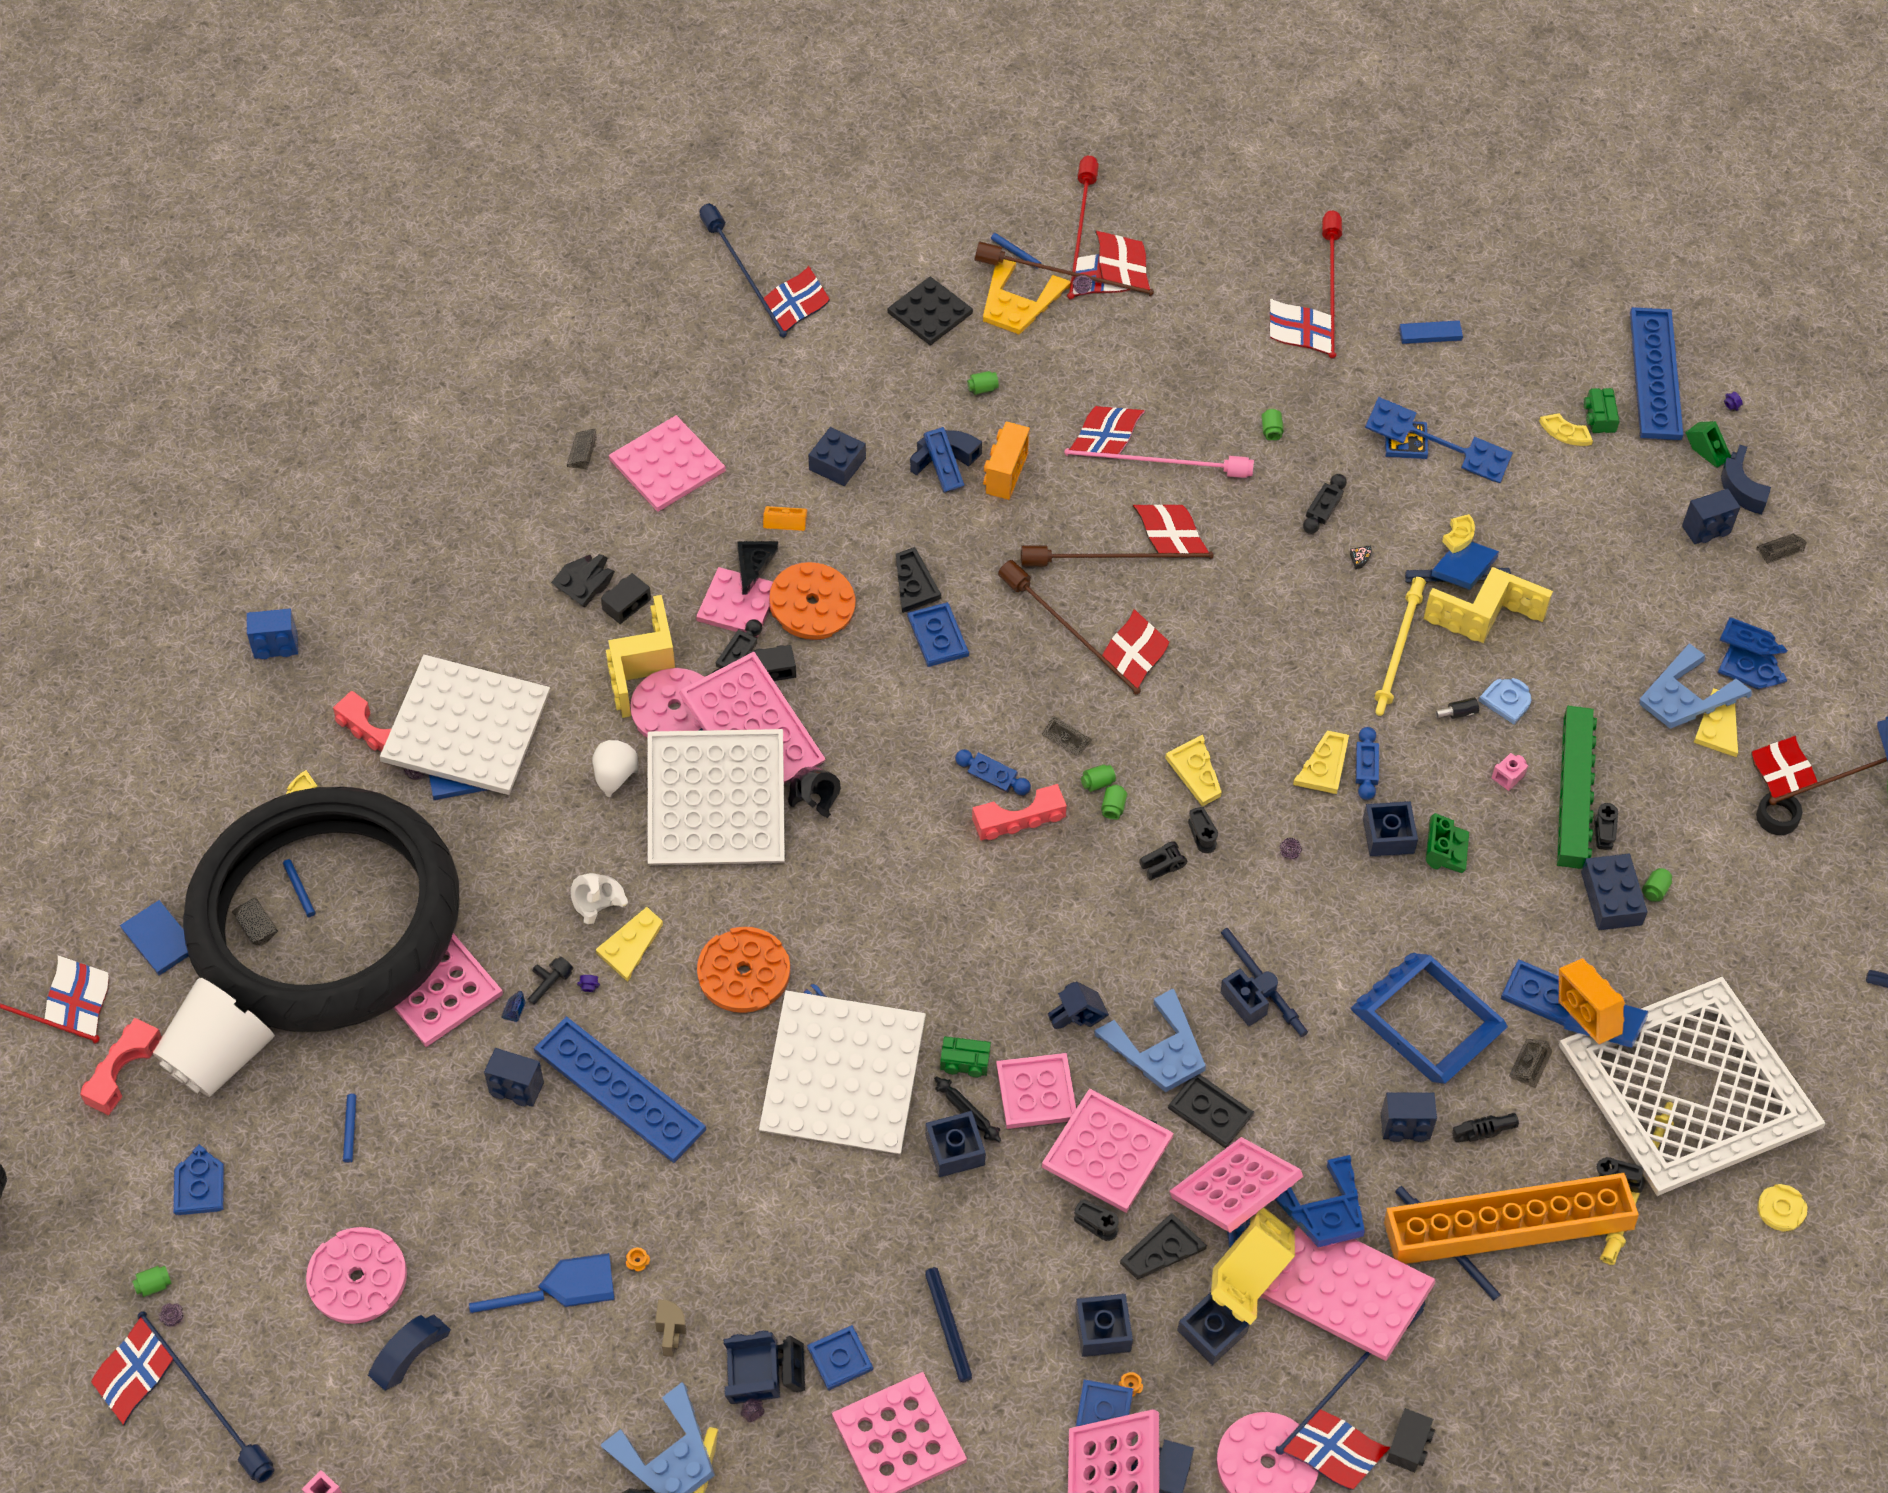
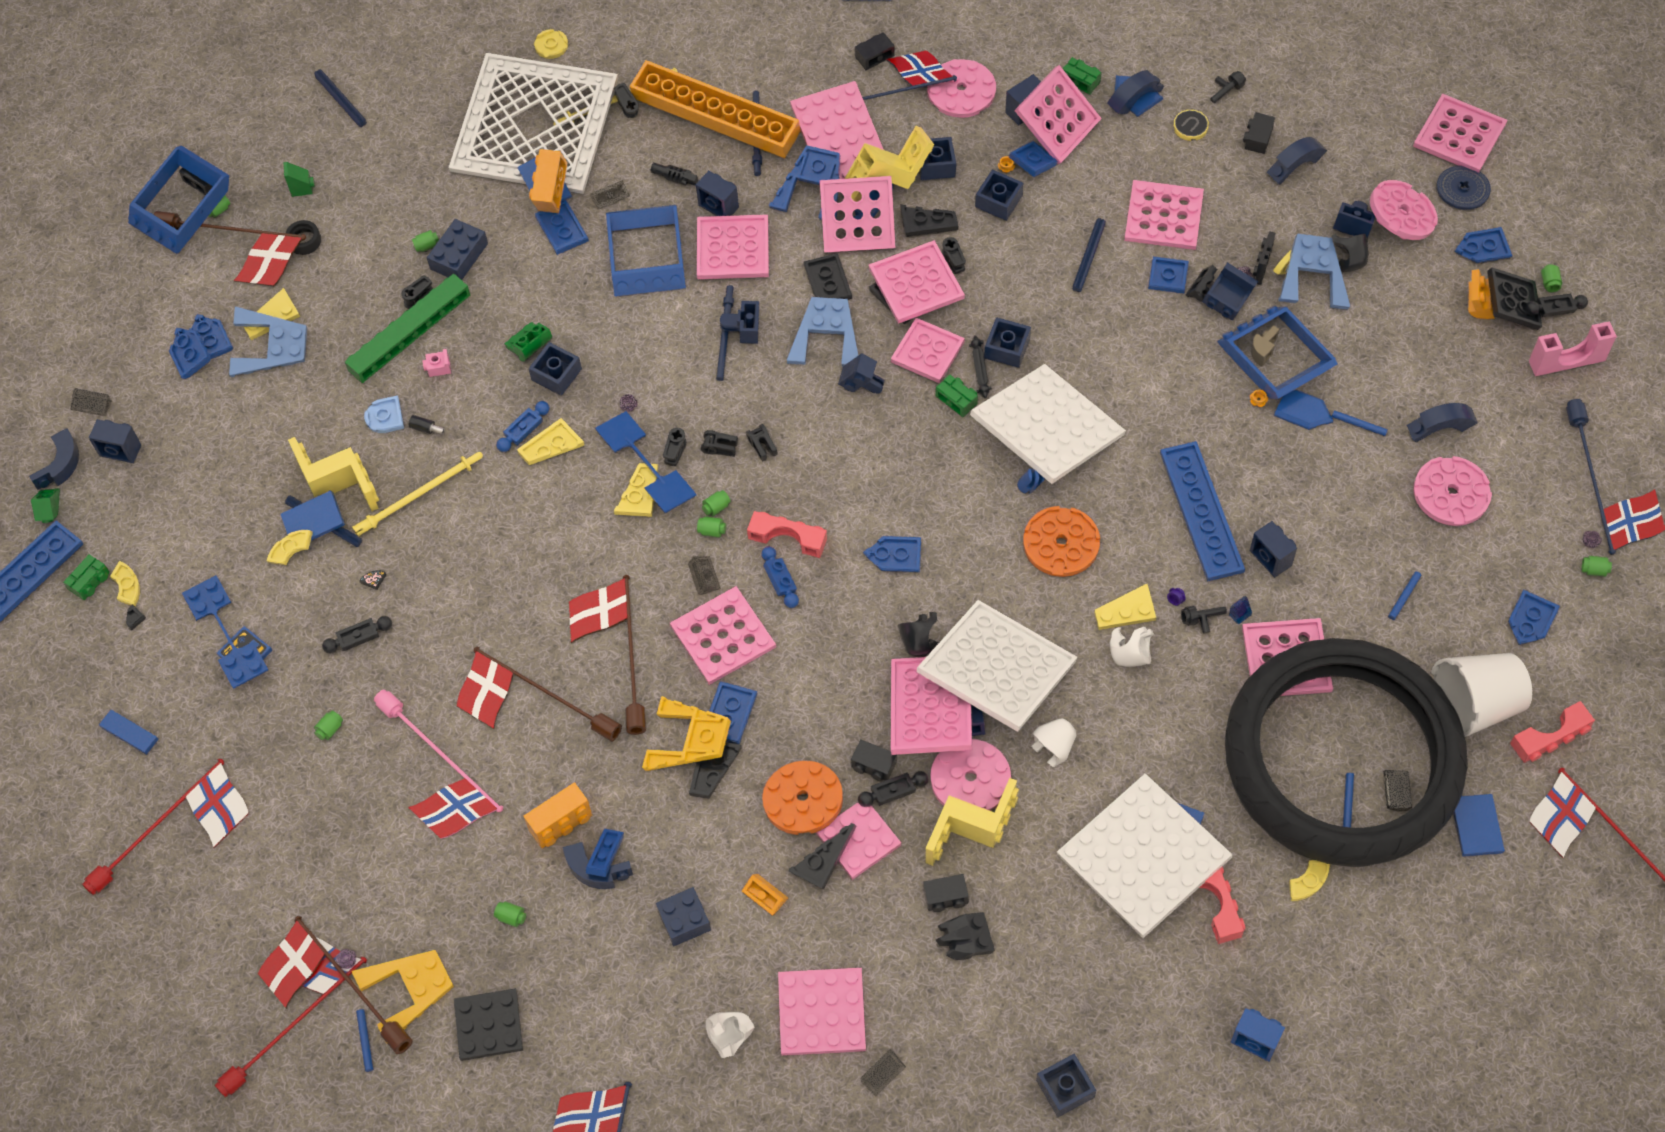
camera: 140 degrees left, 5 degrees up
(418, 513) = (1066, 1085): none -> dark blue brick
(696, 1341) = (1326, 362): none -> blue window
(725, 403) = (728, 1031): none -> white piece
(741, 1444) = (1263, 257): none -> black wing
(899, 862) = (896, 553): none -> blue tile
(939, 592) = (703, 741): none -> yellow wing
(1008, 705) = (730, 661): none -> bright pink piece
(1123, 887) = (760, 436): none -> black piece
(1265, 812) = (667, 490): none -> blue hinge
(1341, 1080) = (732, 247): none -> bright pink plate
(1528, 411) = (134, 617): none -> black tile
(1851, 858) = (298, 180): none -> green slope

